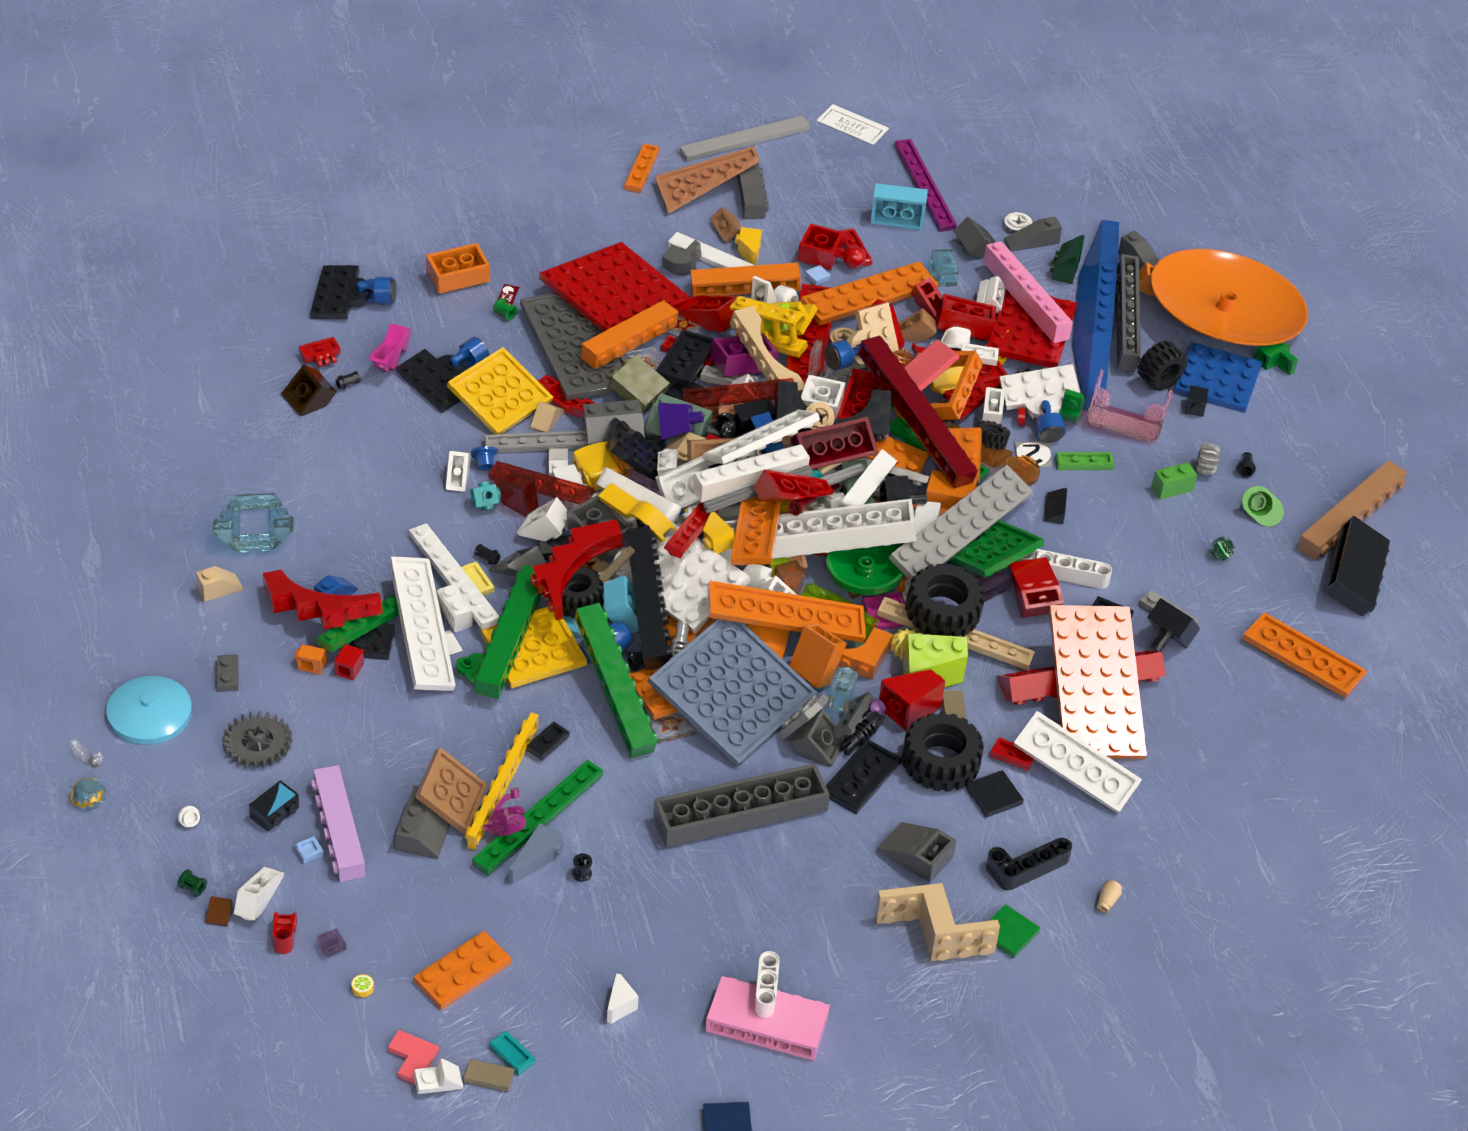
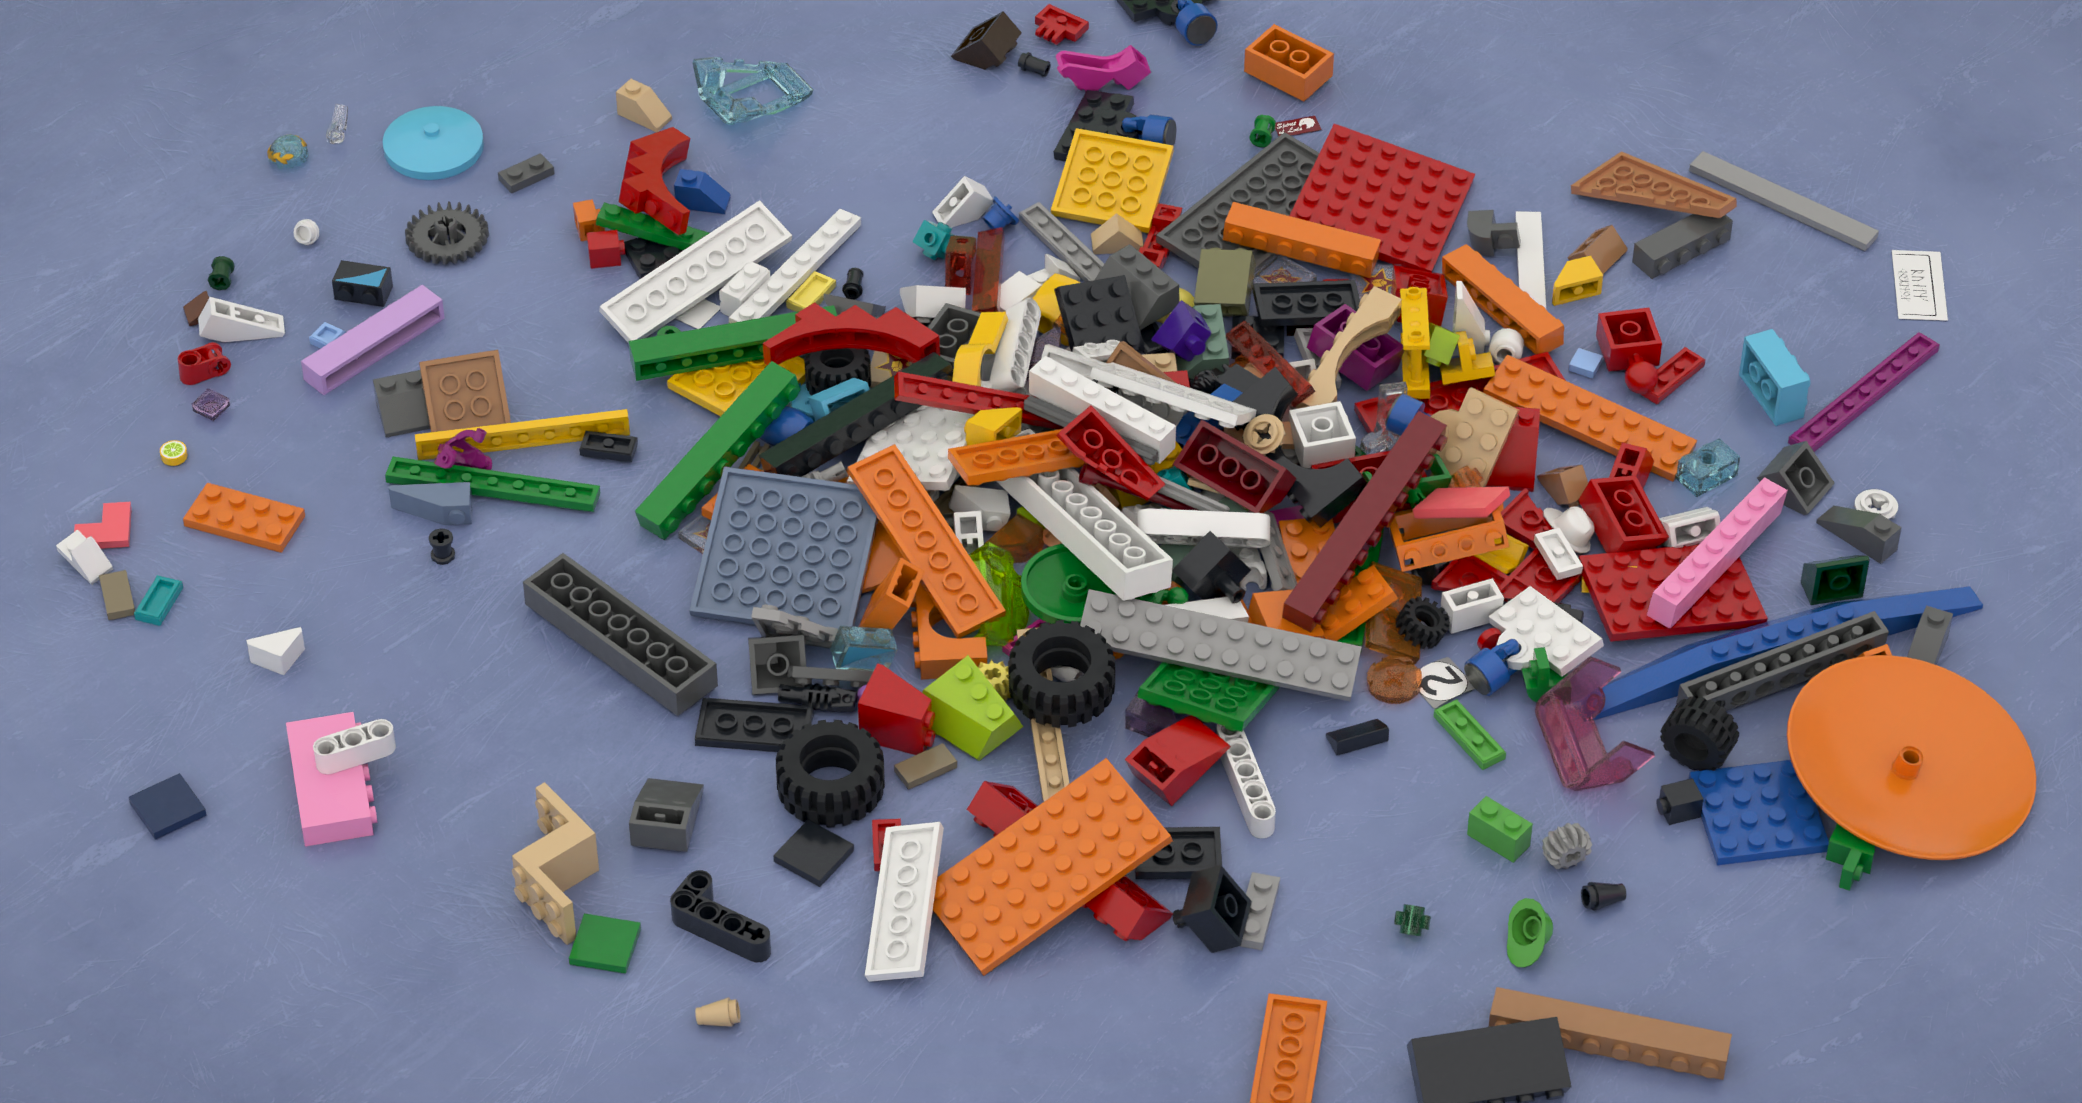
camera: 65 degrees right, 0 degrees up
(617, 564) = (878, 368): dark tan tile -> none
(641, 168) = (1633, 138): orange tile -> none

